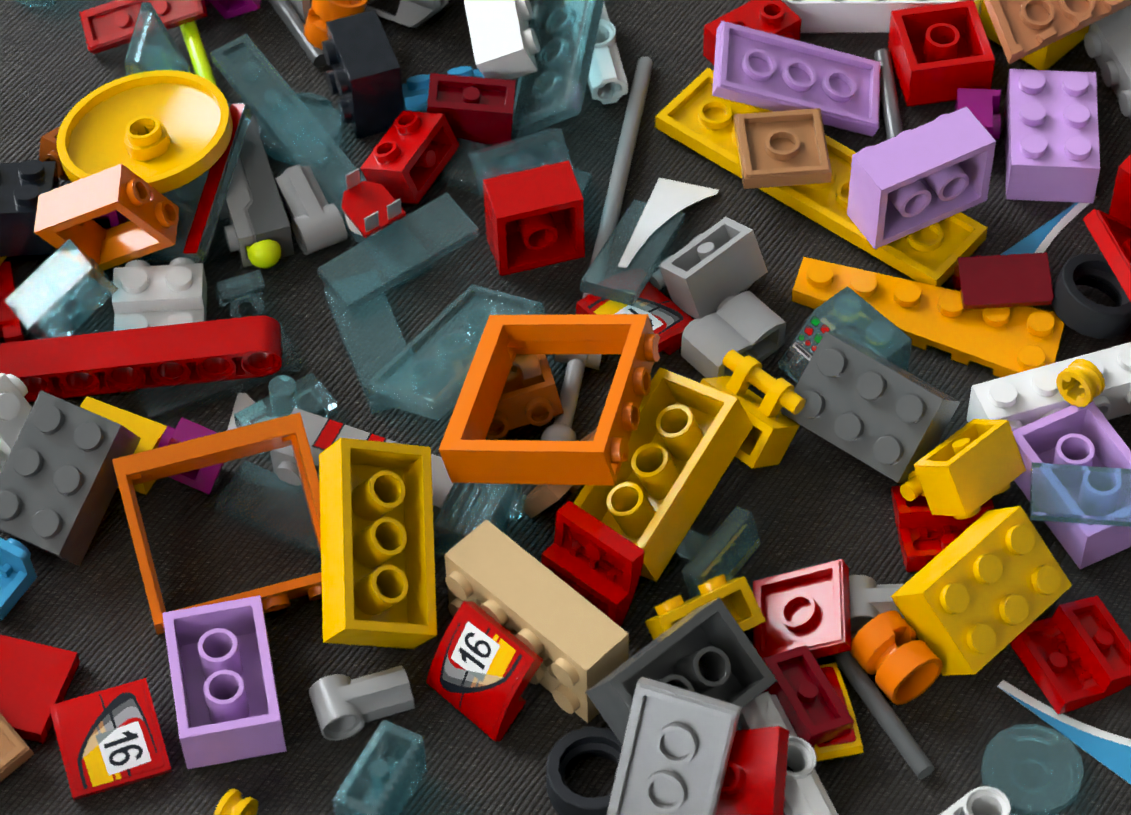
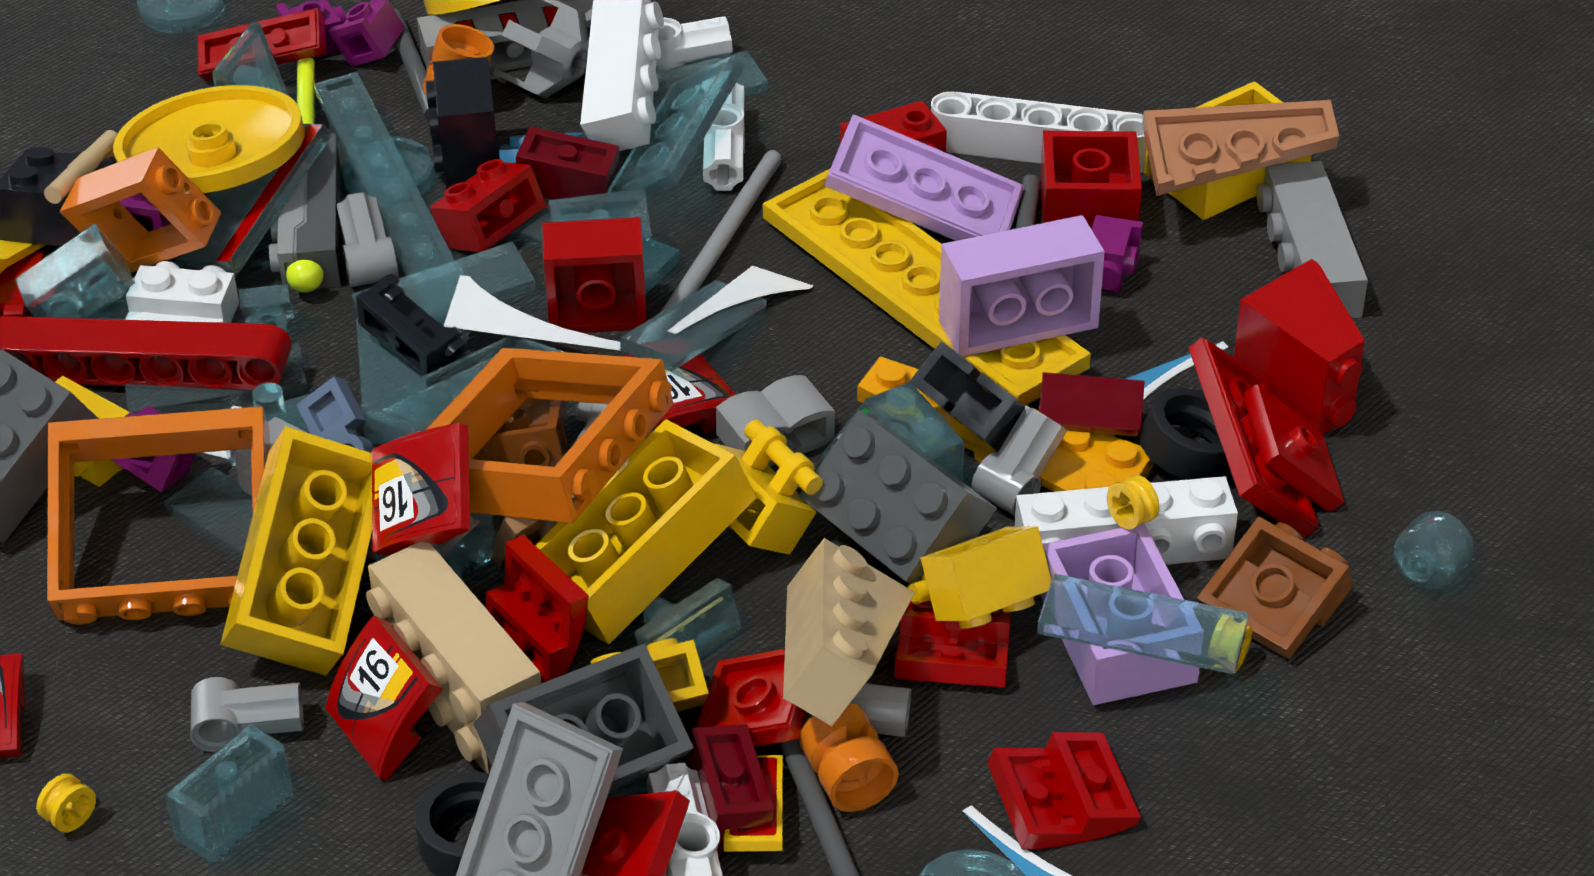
camera: 10 degrees right, 10 degrees down
(36, 180) = (82, 165): none -> tan piece
(223, 682) = (99, 668): lavender brick -> none
(345, 397) = (334, 414): none -> sand blue plate
(368, 206) = (423, 240): red piece -> none
(383, 298) = (407, 328): none -> black hinge
(440, 270) = (481, 312): none -> white sticker
(474, 476) = (420, 489): none -> red slope
(711, 268) = (772, 347): light grey brick -> none
(782, 148) = (885, 246): medium nougat plate -> none
(866, 548) = (837, 628): none -> tan wedge
(896, 291) = (964, 395): none -> black piece
(955, 359) = (1019, 461): none -> light grey piece
(982, 590) = (963, 700): yellow brick -> none
(1051, 136) = (1188, 275): lavender brick -> none

